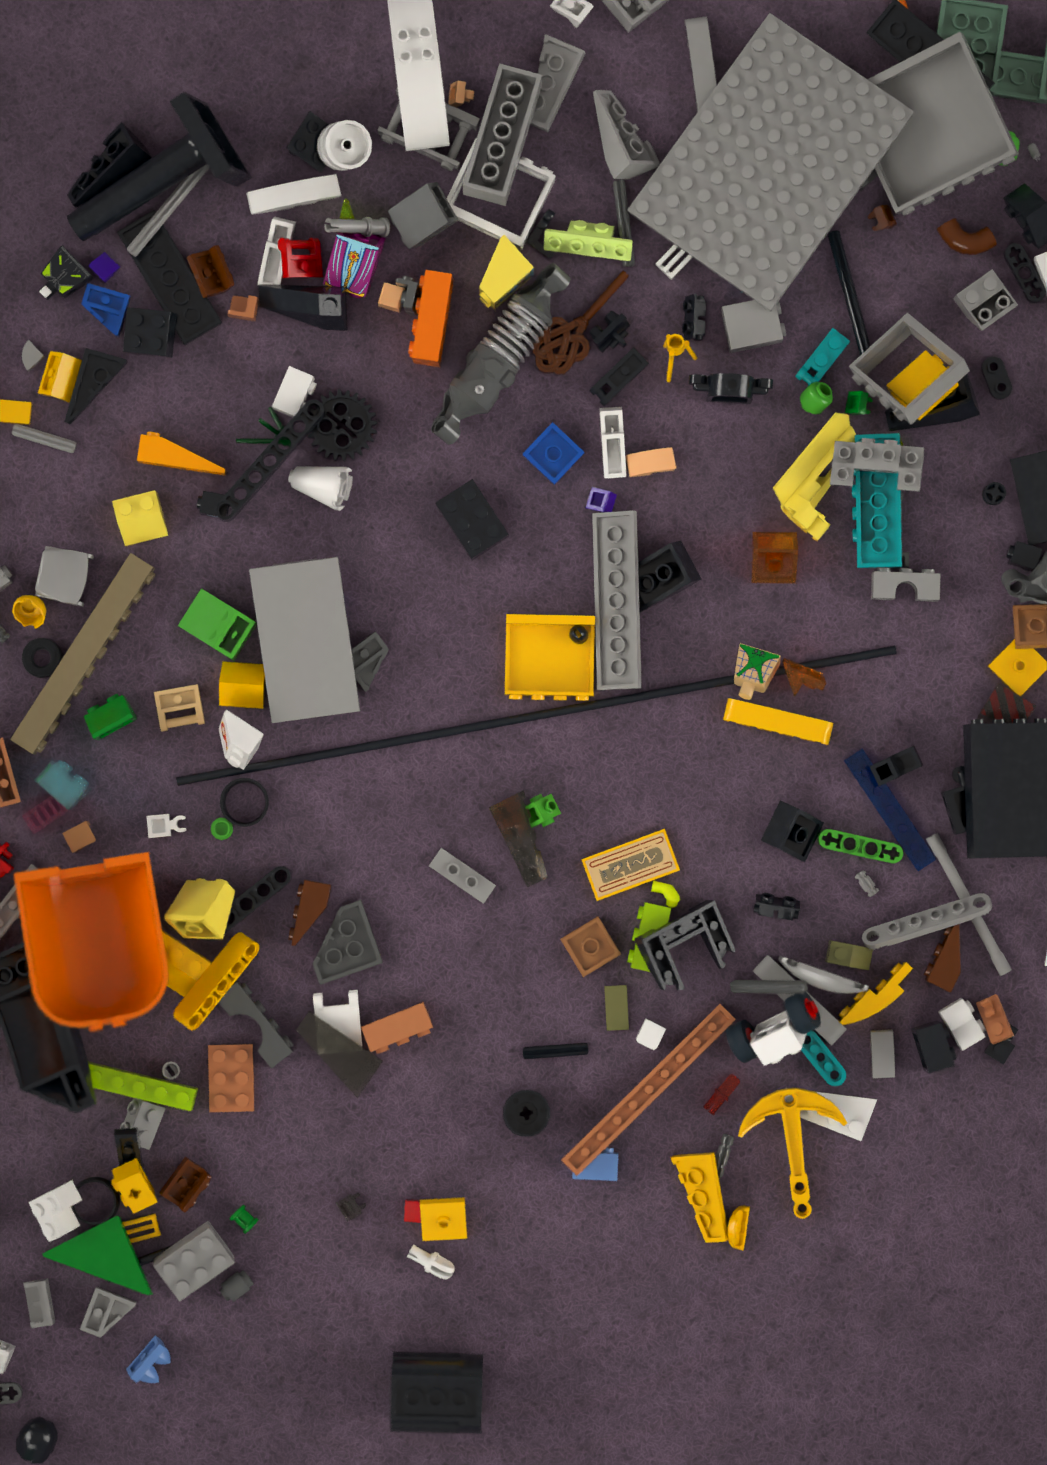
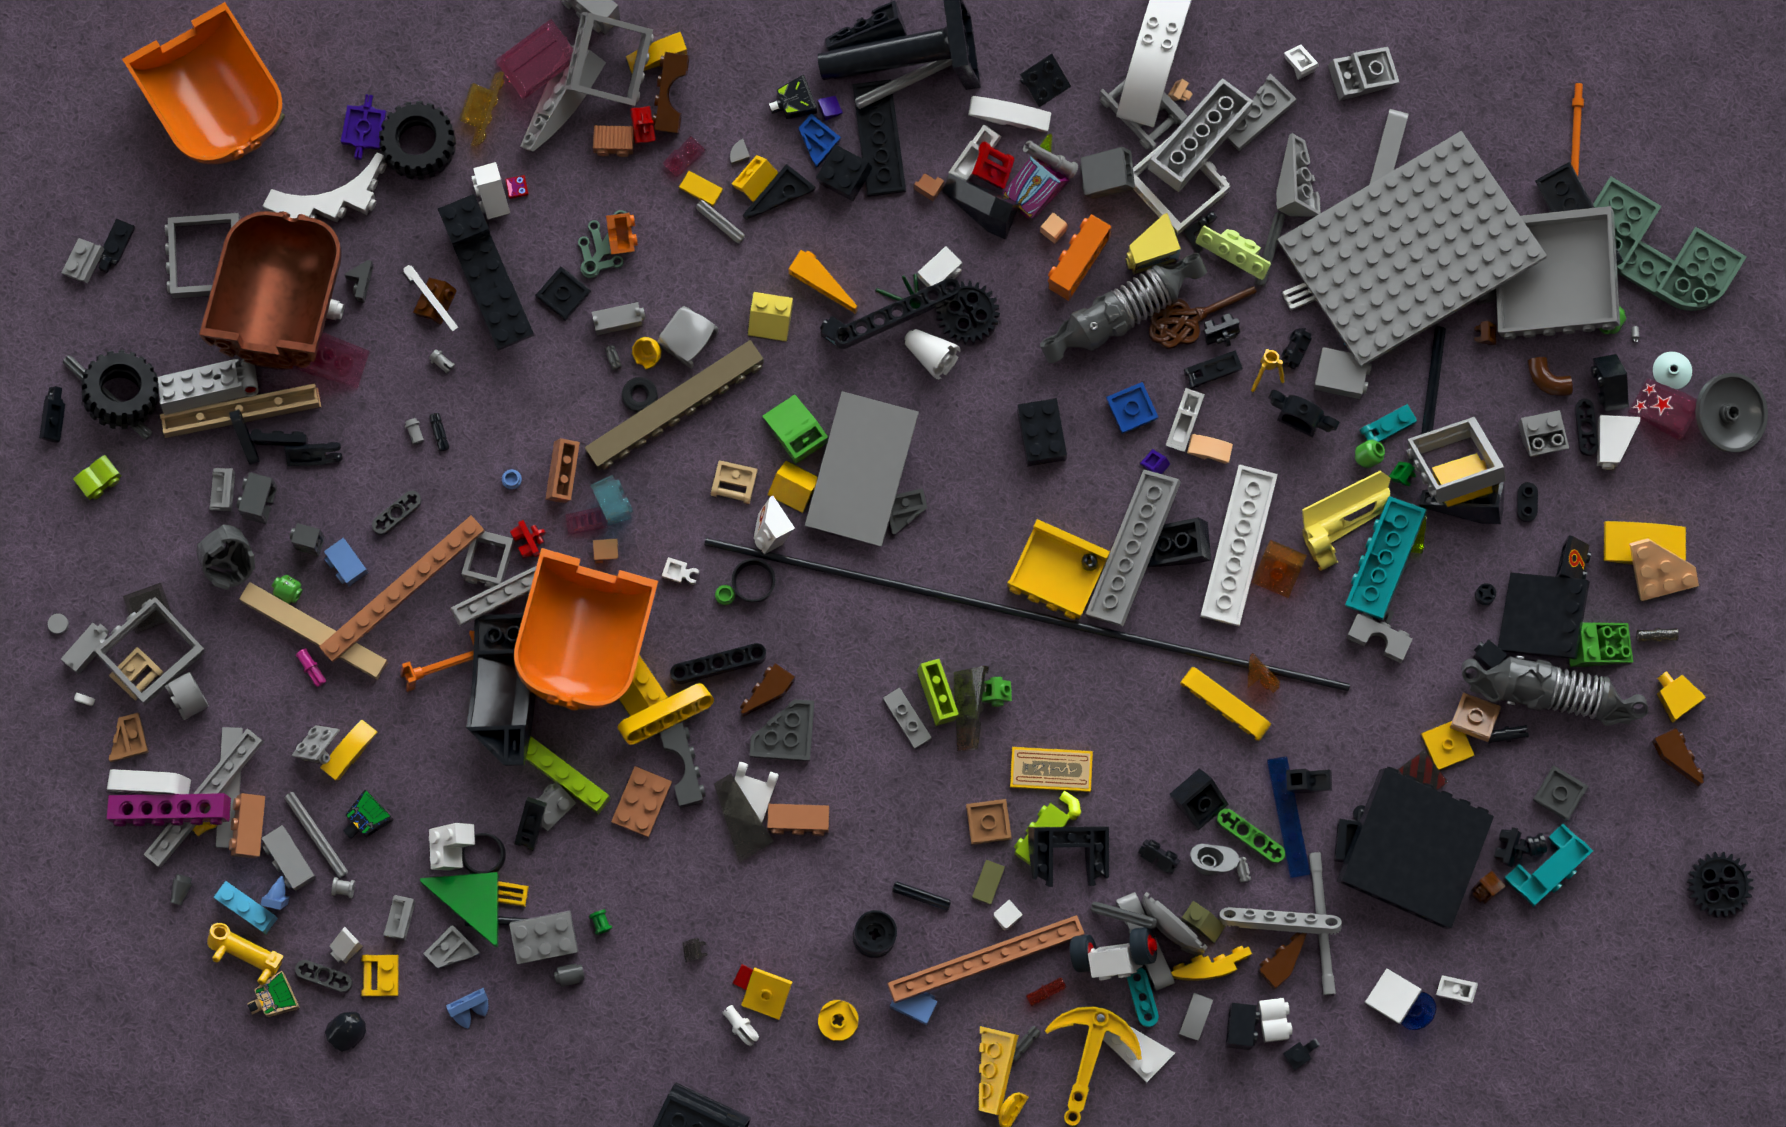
camera: 25 degrees right, 10 degrees down
(52, 1365) = (386, 975): none -> yellow plate
(109, 717) = (674, 464): green slope -> none
(134, 1186) = (525, 863): yellow brick -> none
(174, 1068) = (598, 773): light grey hinge -> none
(186, 1184) = (565, 872): reddish brown bracket -> none
(201, 909) = (679, 649): light yellow slope -> none
(211, 271) = (915, 146): reddish brown bracket -> none
(346, 157) = (1079, 91): white wheel -> none
(409, 296) = (1069, 230): dark grey bracket -> none
(482, 837) = (937, 692): none -> lime brick
(526, 1226) = (826, 1019): none -> yellow plate
(722, 550) = (1238, 545): none -> white plate
(754, 670) = (1224, 651): tan torso -> none
(834, 887) = (1213, 859): none -> piece
(877, 457) = (1399, 520): light grey bracket -> none
(994, 1019) = (1303, 1027): nougat plate -> none

